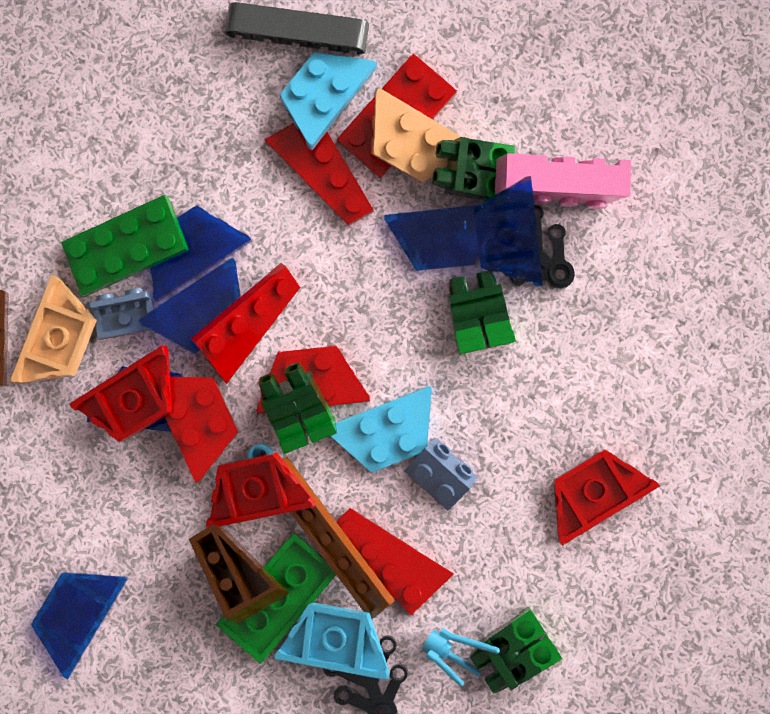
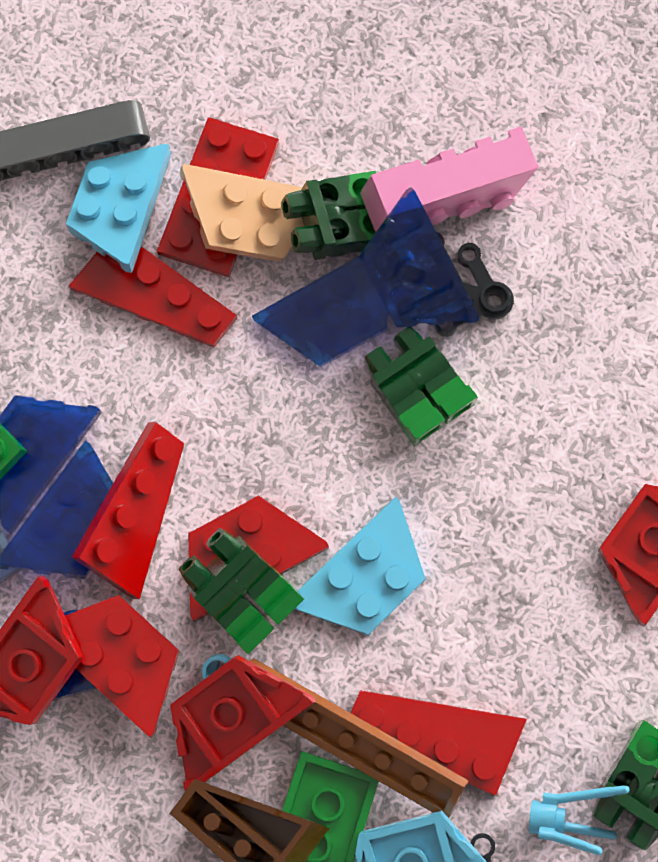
camera: 20 degrees left, 10 degrees down
(441, 474) = (456, 599): sand blue bracket -> none

